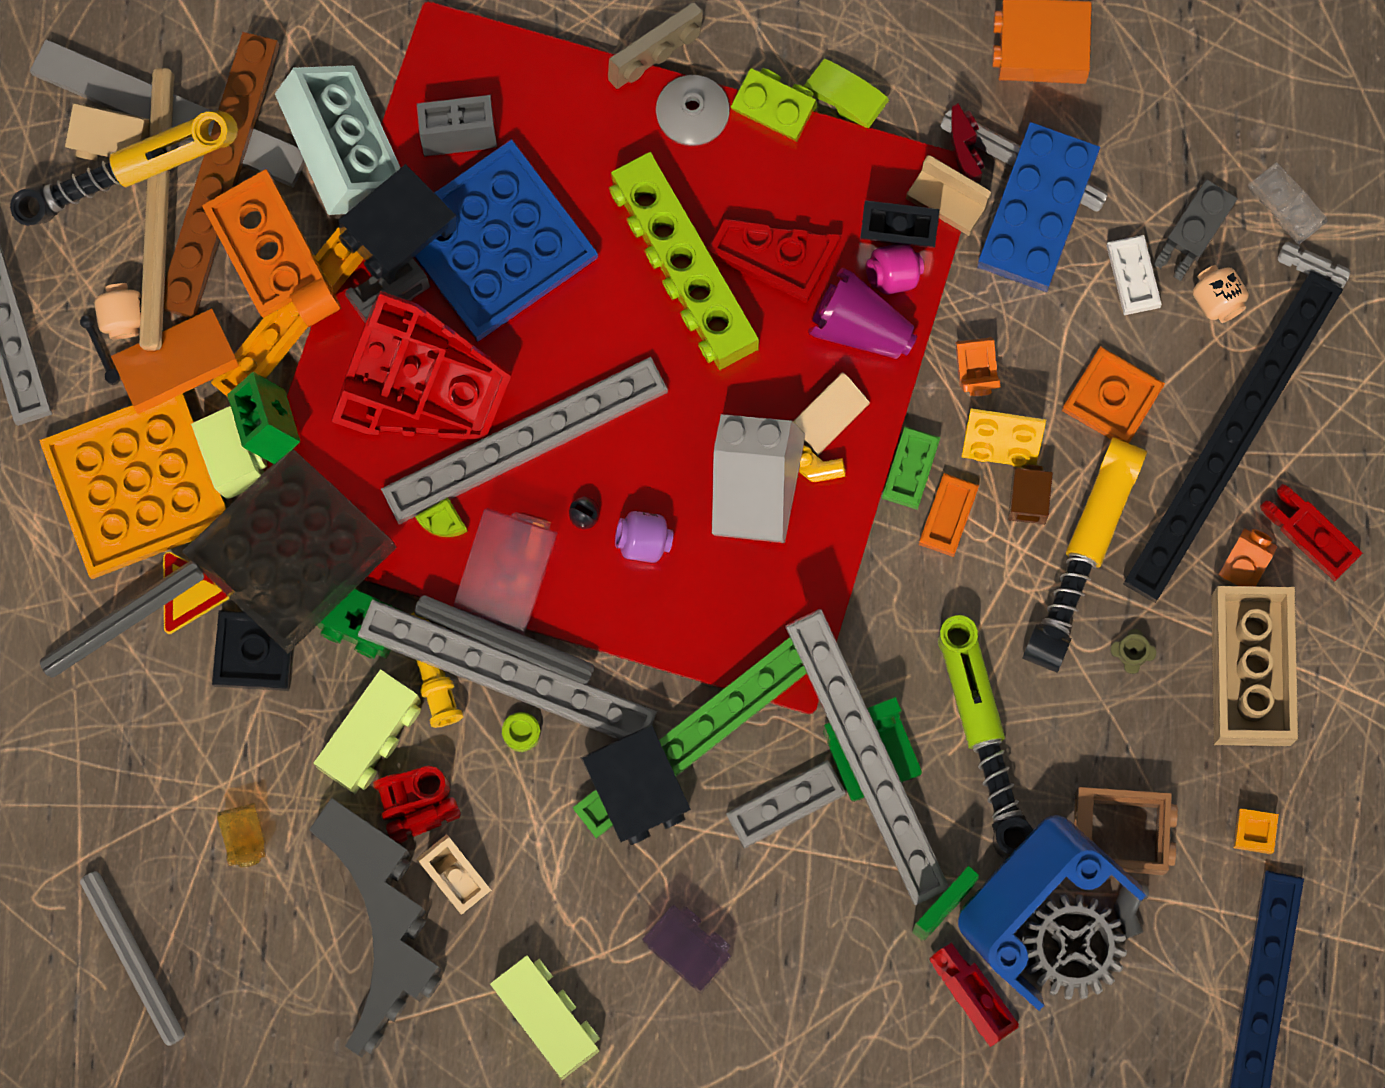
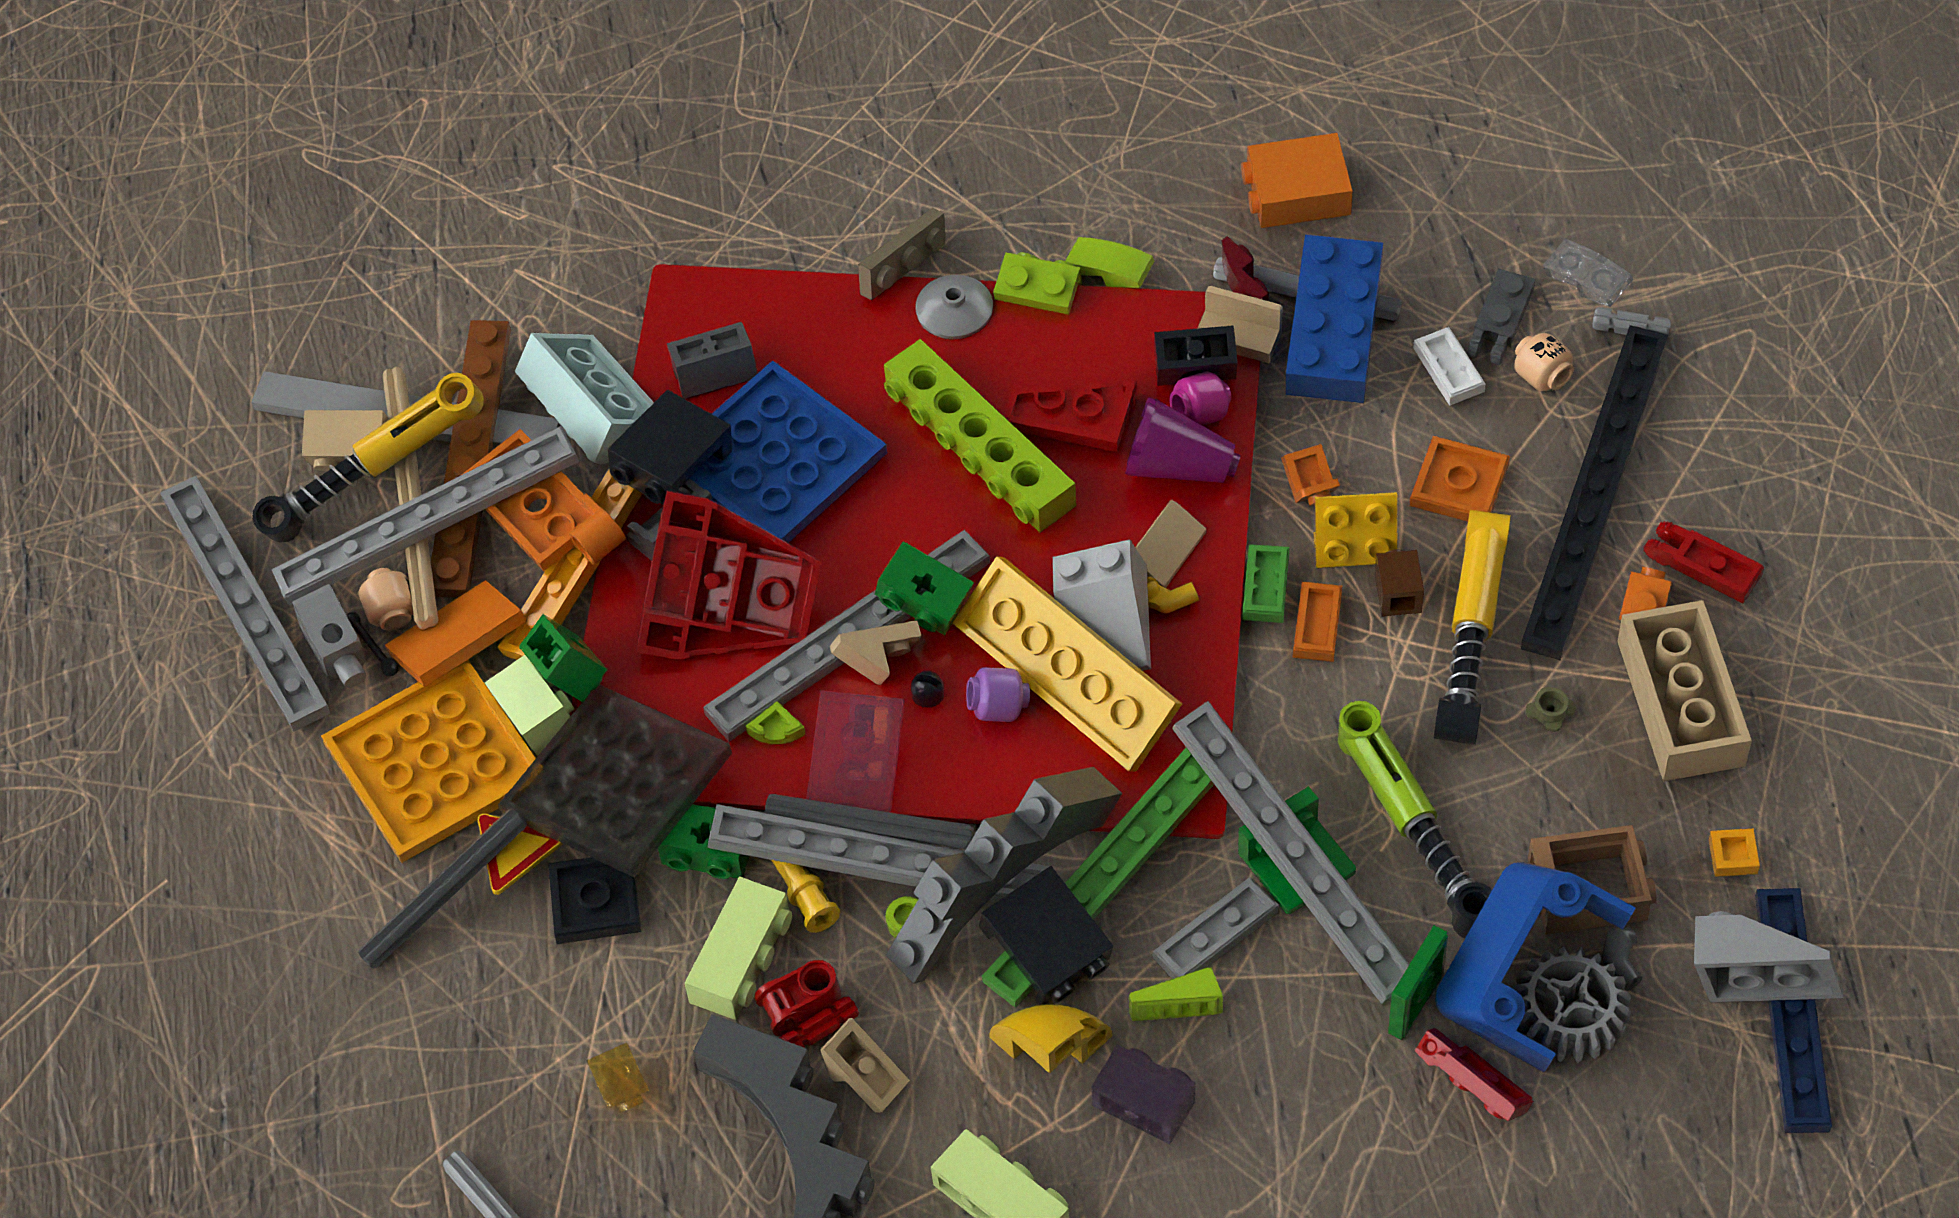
camera: 10 degrees left, 20 degrees down
(58, 331) = (331, 636): none -> light grey torso
(166, 240) = (425, 515): none -> light grey tile
(536, 466) = (866, 648): none -> tan slope
(609, 707) = (1001, 848): none -> dark grey arch
(620, 424) = (914, 570): none -> green brick
(620, 877) = (1051, 1034): none -> yellow brick
(710, 522) = (1067, 664): none -> yellow plate
(747, 865) = (1178, 998): none -> lime slope
(1228, 947) = (1759, 963): none -> light grey slope

